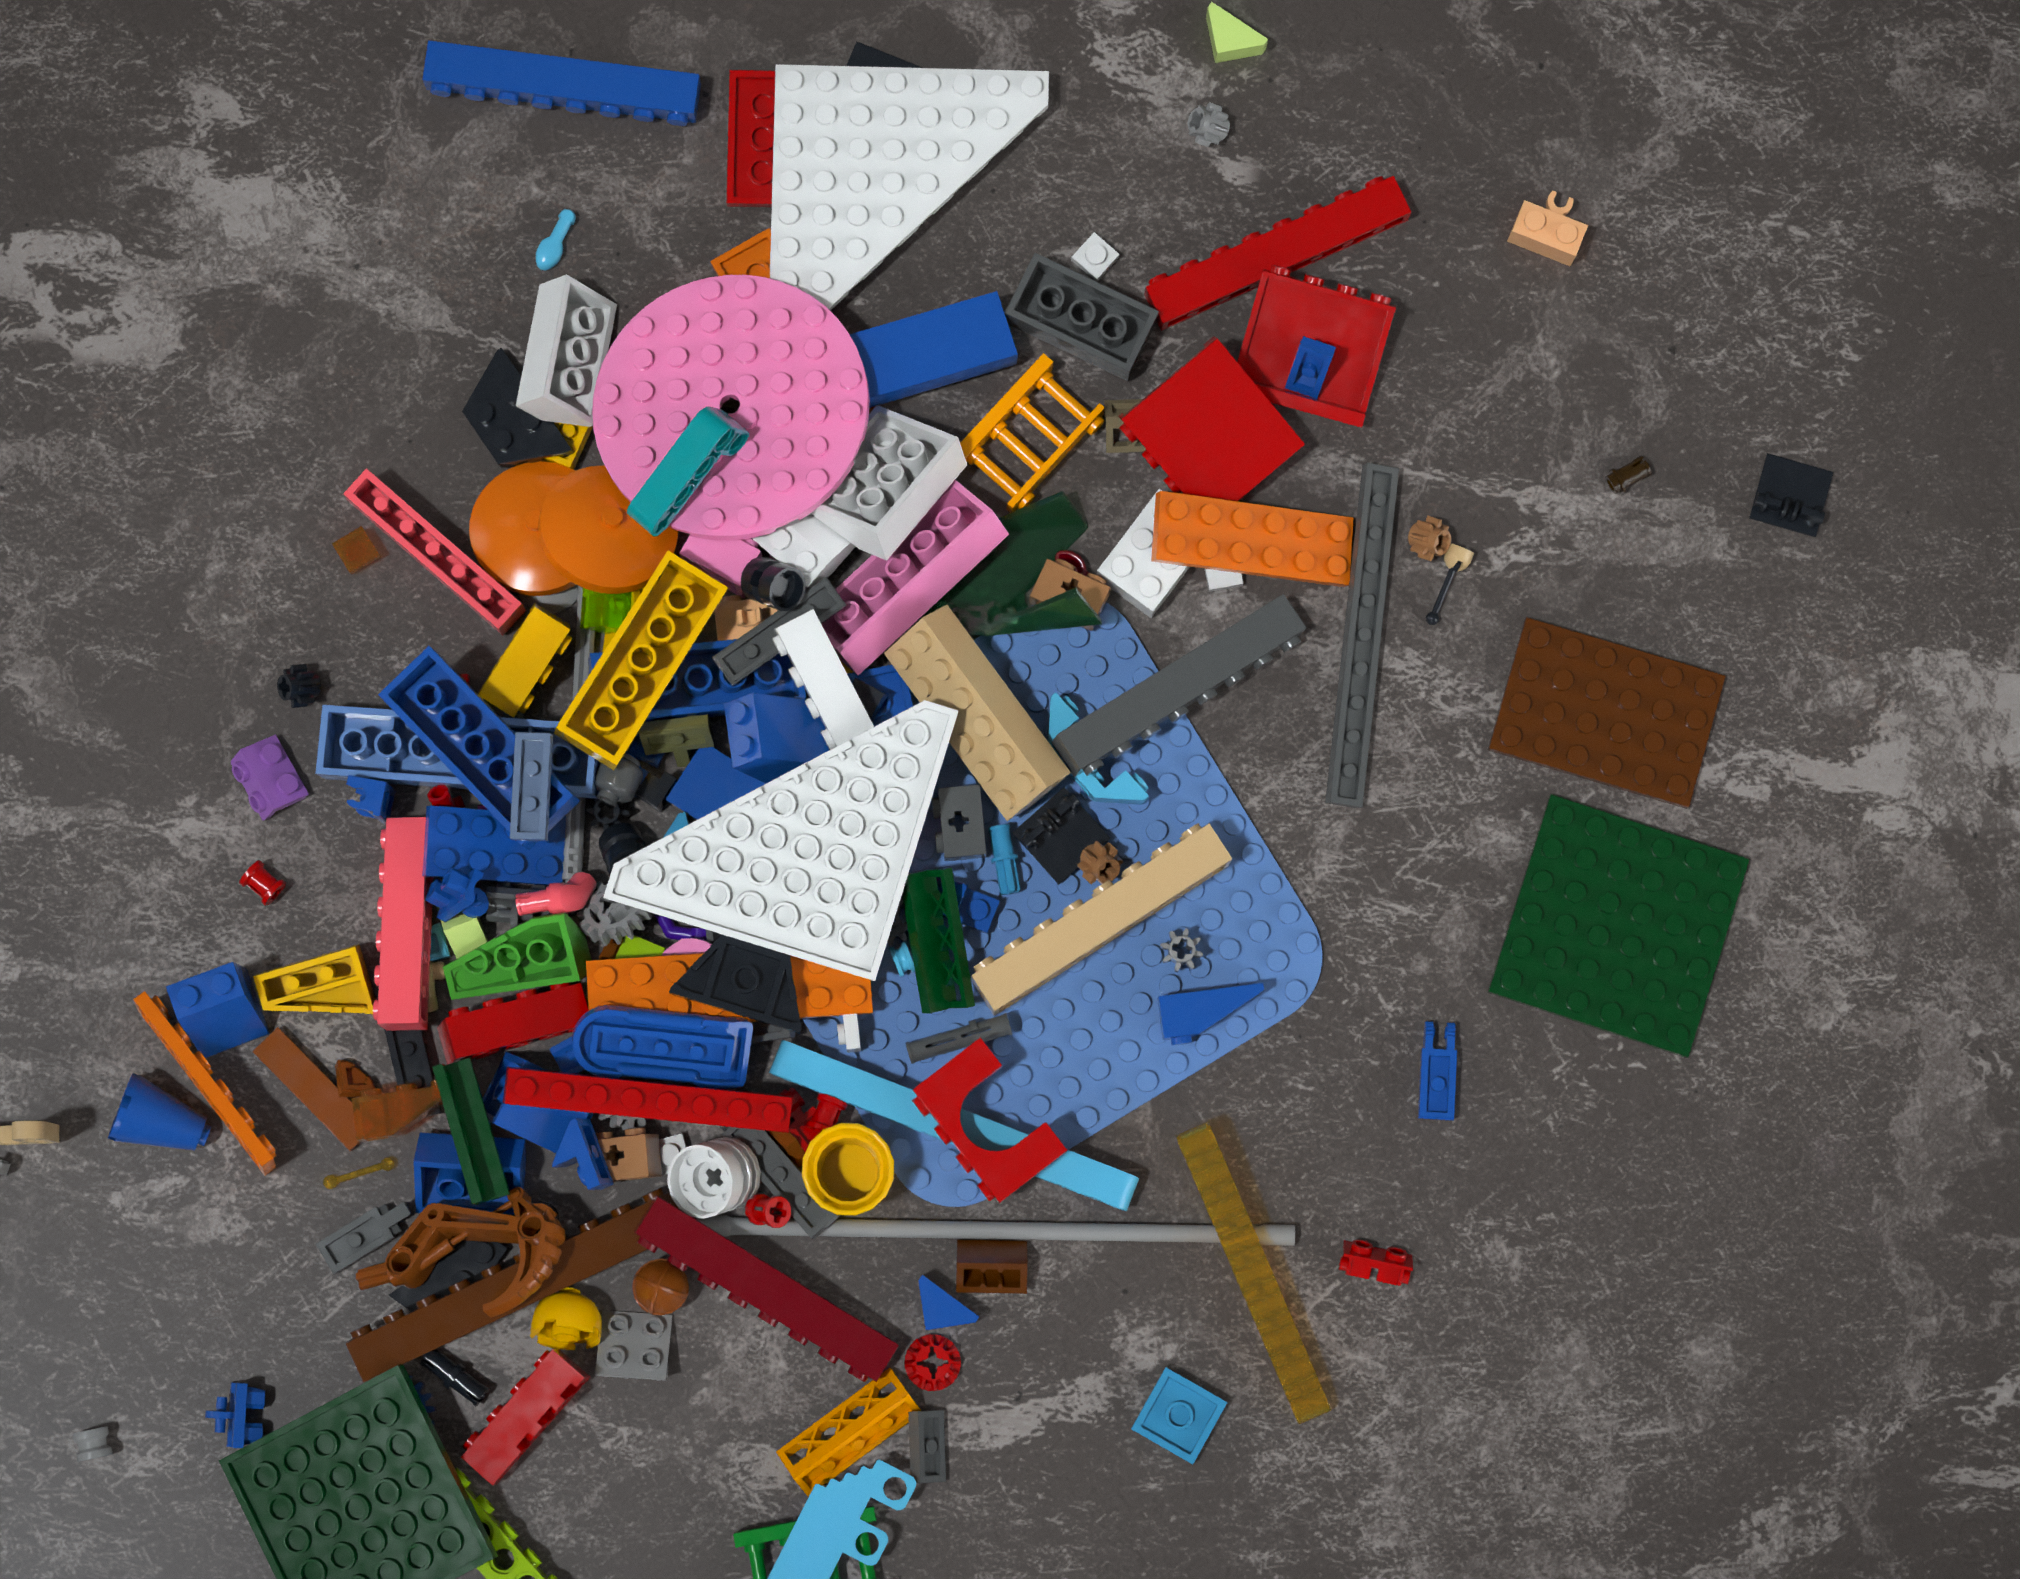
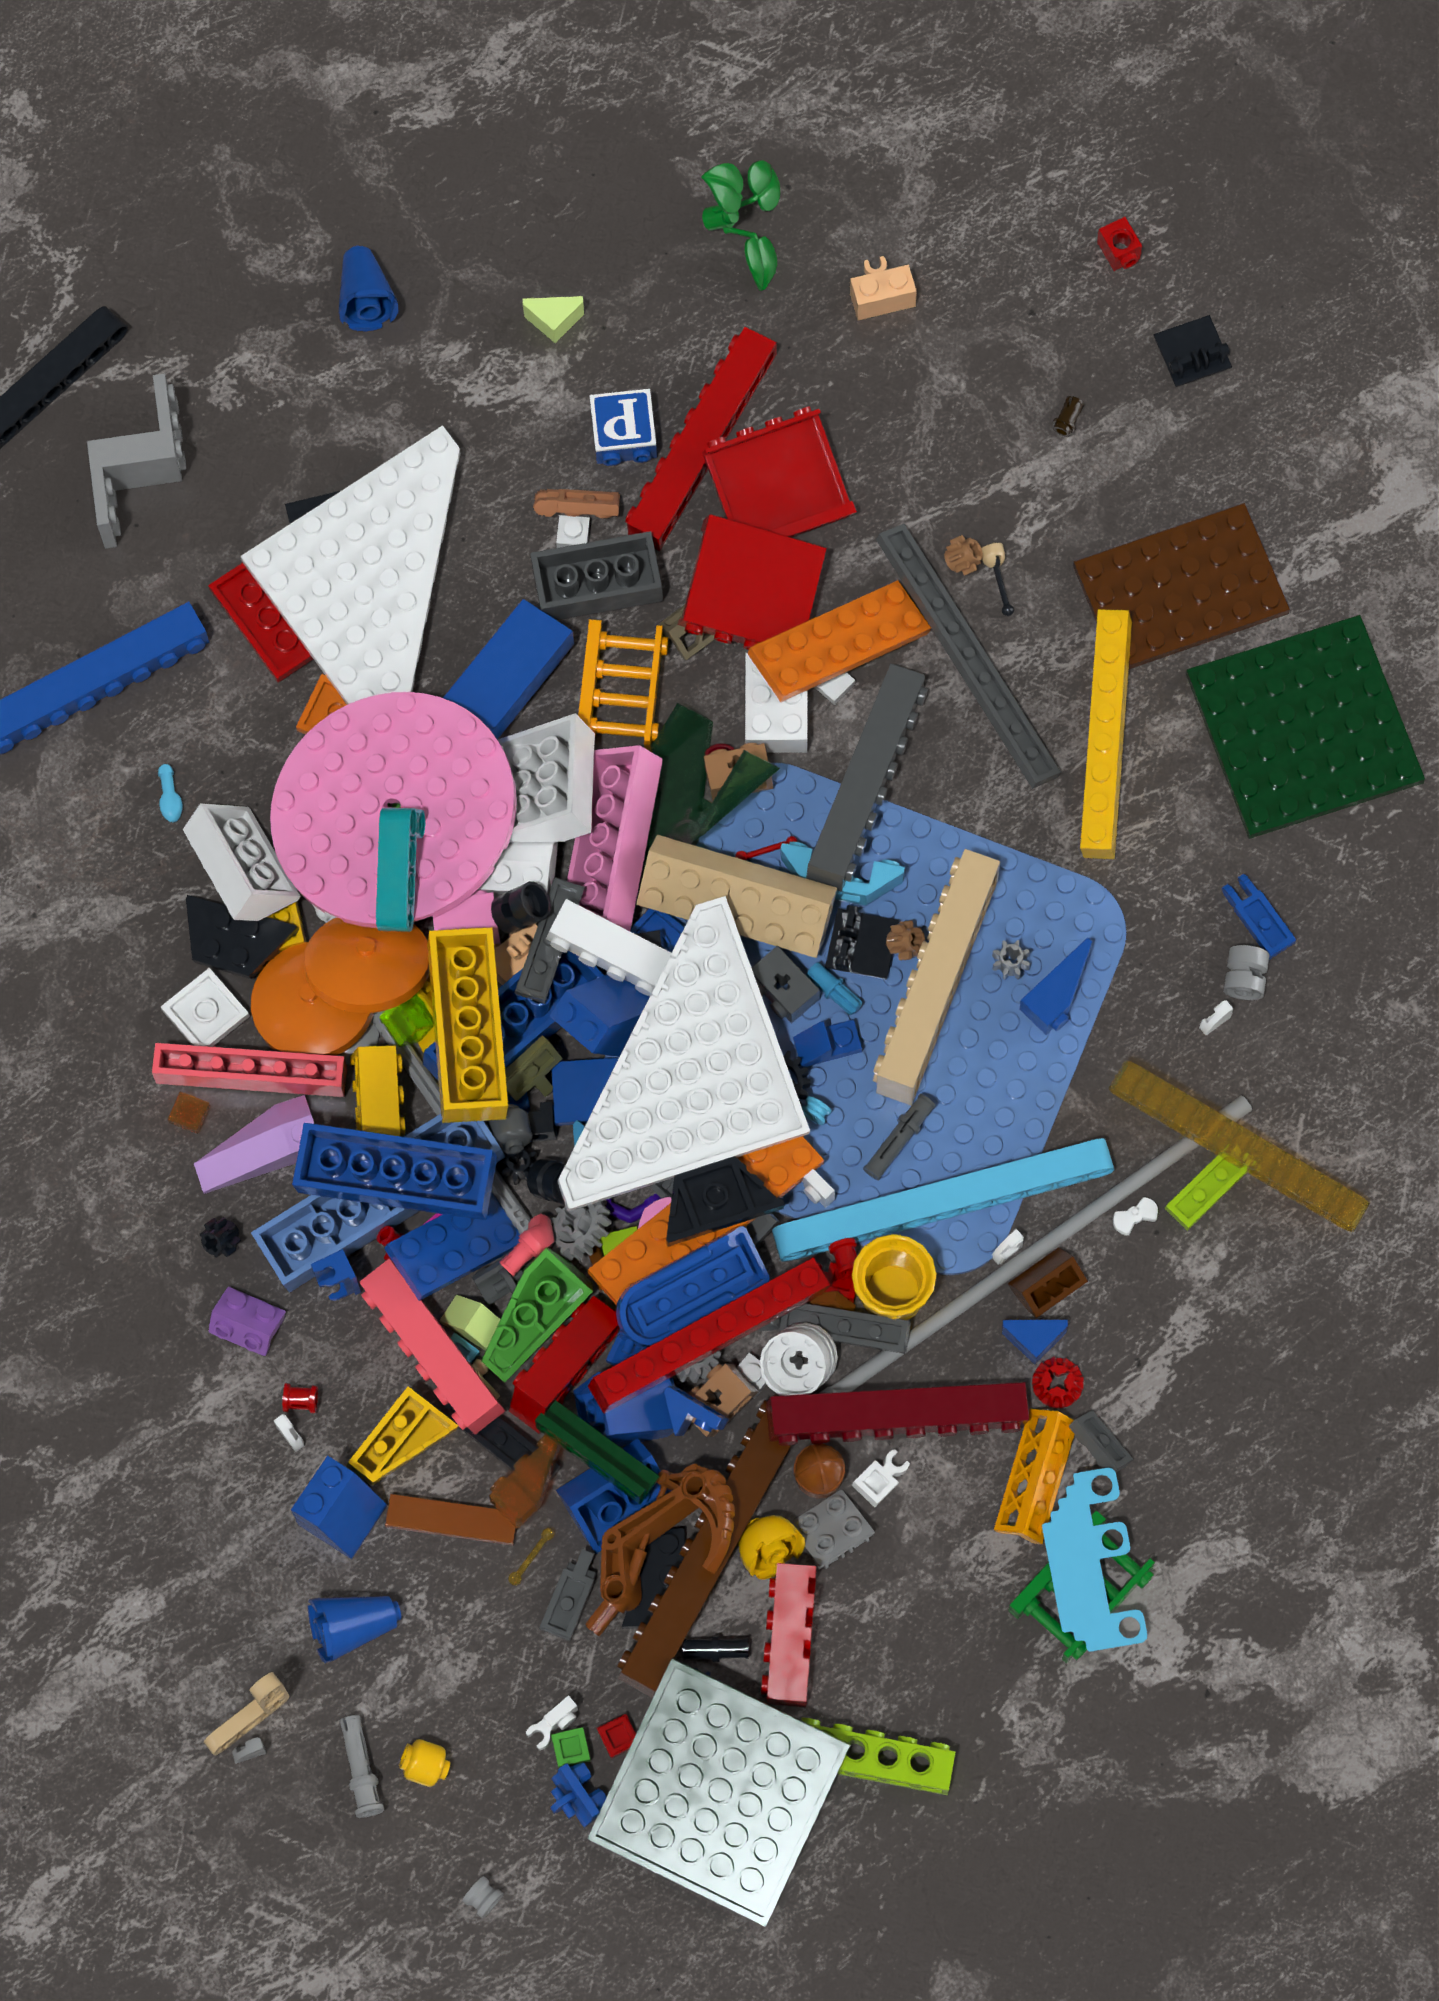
camera: 30 degrees left, 10 degrees down
(66, 1266) = (362, 1781): none -> light grey pin
(129, 1288) = (424, 1763): none -> yellow head
(199, 1072) = (369, 1569): orange plate -> none
(230, 906) = (289, 1433): none -> white tile
(265, 1369) = (570, 1747): none -> bright green plate
(275, 1335) = (559, 1716): none -> white plate
(314, 1388) = (617, 1735): none -> red tile
(351, 1079) = (473, 1493): dark orange tile -> none
(397, 625) = (257, 1148): none -> lavender wedge
(438, 467) = (205, 1010): none -> white plate
(458, 894) = (456, 1294): blue hips -> none
(531, 786) = (458, 1163): sand blue plate -> none
(706, 1333) = (878, 1480): none -> white plate
(769, 1205) = (856, 1355): red bush -> none
(932, 940) = (827, 1078): dark green fence -> none
(943, 1097) = (1000, 1202): red arch -> none
(980, 1209) = (1008, 1247): none -> white tile
(1015, 675) = (744, 856): none -> red hinge
(1104, 1261) = (1125, 1220): none -> white piece
(1118, 232) = (576, 503): none -> nougat hinge
(1179, 1415) = (1264, 1288): dark azure plate -> none
(1193, 1288) = (1204, 1191): none -> lime plate
(1208, 124) = (584, 383): light grey gear -> none
(1213, 190) = (623, 427): none -> piece
(1310, 367) = (787, 494): blue slope -> none
(1330, 1137) = (1222, 1014): none -> white tile
(1385, 1117) = (1246, 974): none -> light grey wheel
(1392, 1263) = (1307, 1082): red hinge -> none
(1428, 803) = (1106, 734): none -> yellow brick
(1467, 32) = (726, 187): none -> green plant
(1807, 331) = (1119, 232): none -> red brick

